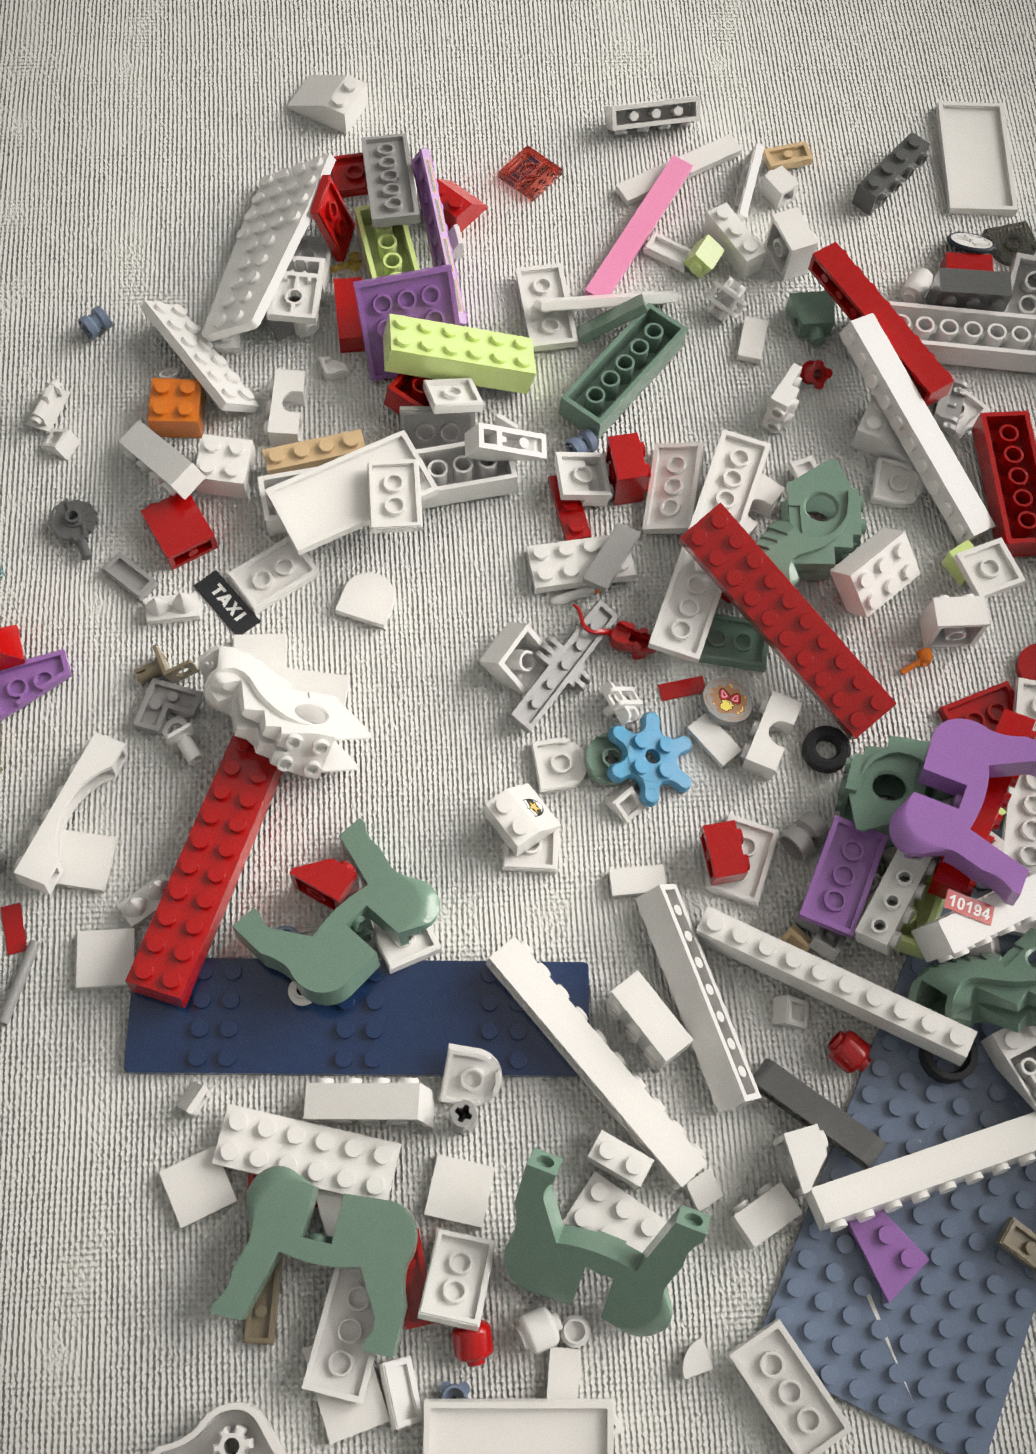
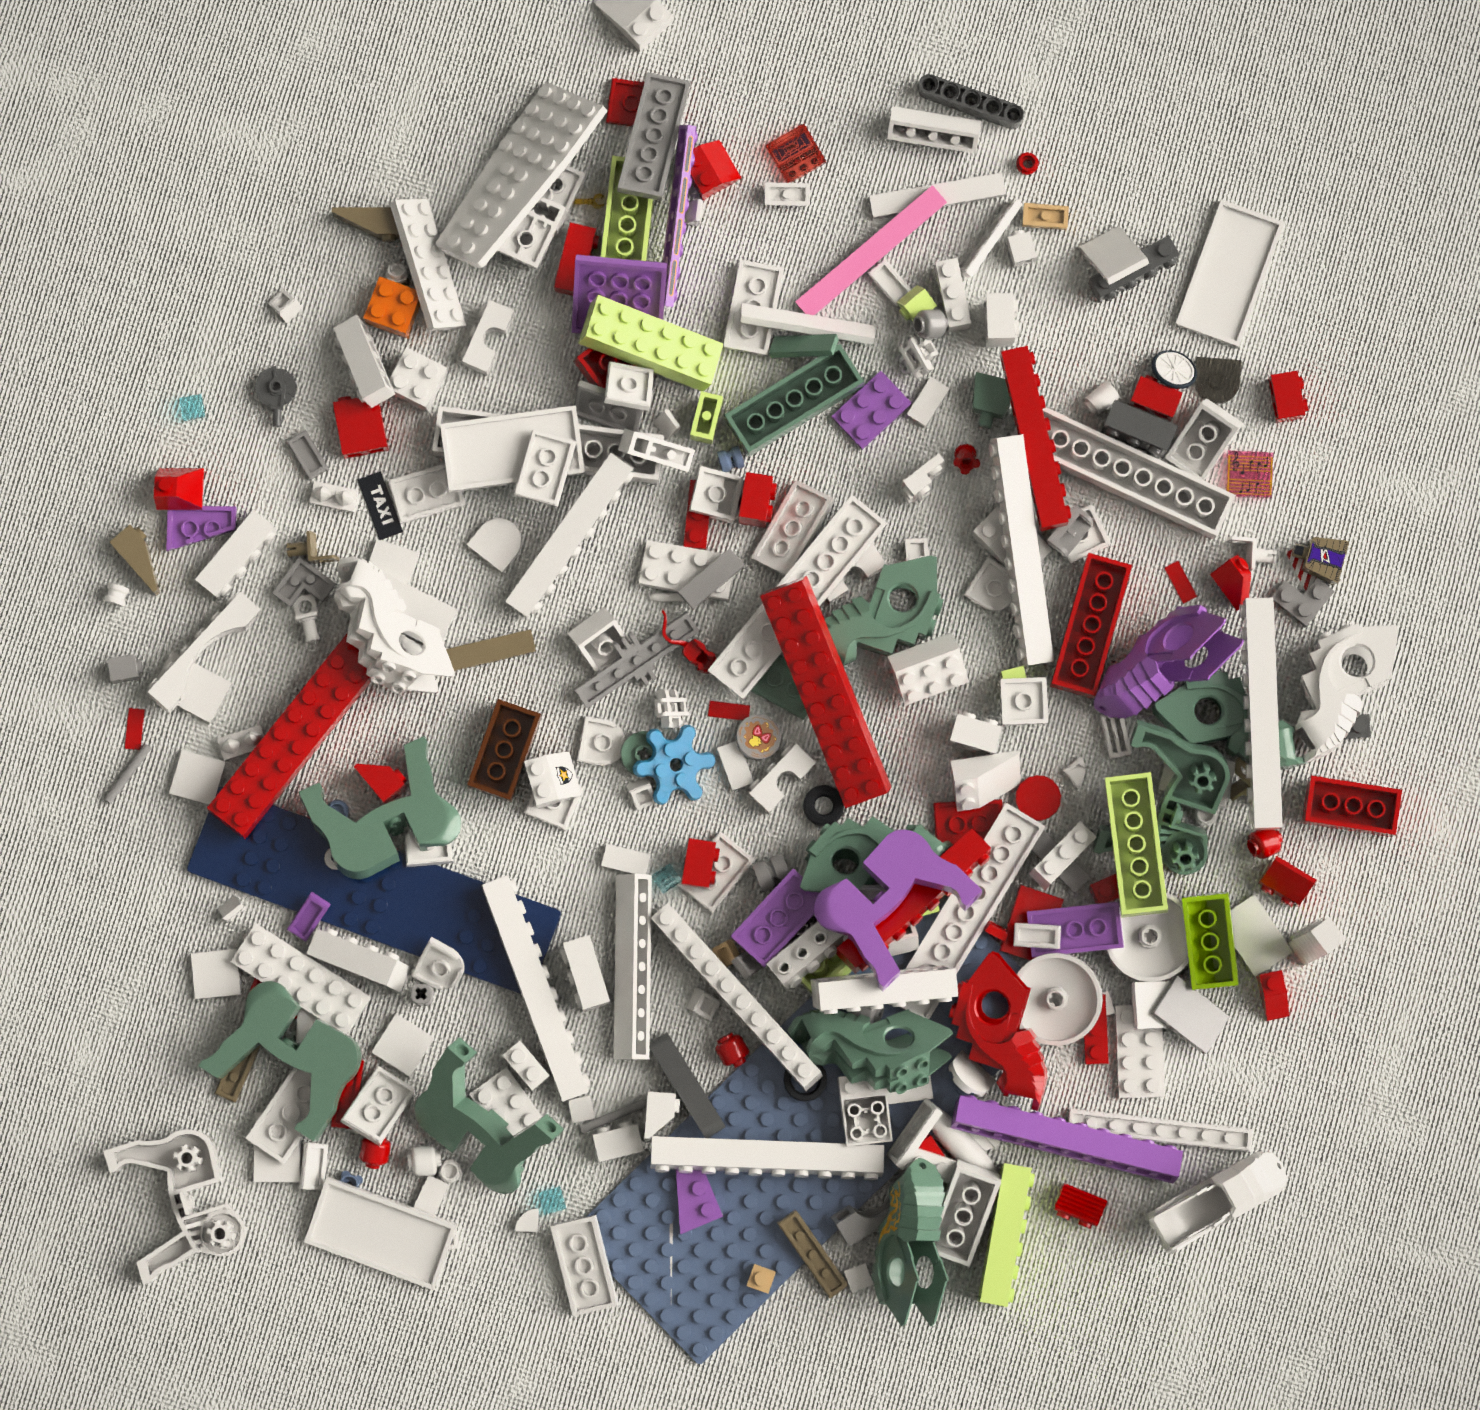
camera: 25 degrees right, 15 degrees up
(48, 407) = (284, 267): white hinge -> none
(79, 699) = (236, 554): none -> white brick
(95, 322) = (348, 194): sand blue wheel -> none
(128, 338) = (371, 220): none -> dark tan slope
(291, 1073) = (308, 916): none -> medium lavender tile
(311, 452) = (495, 396): tan brick -> none
(332, 218) = (588, 163): red tile -> none
(332, 369) = (541, 307): white tile -> none
(403, 707) = (491, 650): none -> dark tan tile
(444, 559) = (569, 534): none -> white brick
(456, 805) = (504, 750): none -> reddish brown brick
(537, 203) = (787, 194): none -> white plate
(542, 409) = (706, 417): none -> yellowish green brick
(666, 84) = (979, 109): none -> dark grey beam
(692, 883) = (666, 878): none -> clear light blue plate
(700, 363) = (871, 410): none -> medium lavender plate
(714, 1320) = (552, 1200): none -> clear light blue tile
(728, 262) = (930, 324): none -> light grey head
(743, 1185) = (612, 1116): none -> light grey bar
(749, 121) = (1027, 157): none -> red plate
(870, 160) = (1114, 255): none -> white tile
(924, 659) = (941, 756): orange hand -> none
(969, 907) = (848, 980): sticker -> none
(982, 661) = (984, 778): none -> white slope
(1007, 1322) = (761, 1278): none -> tan plate

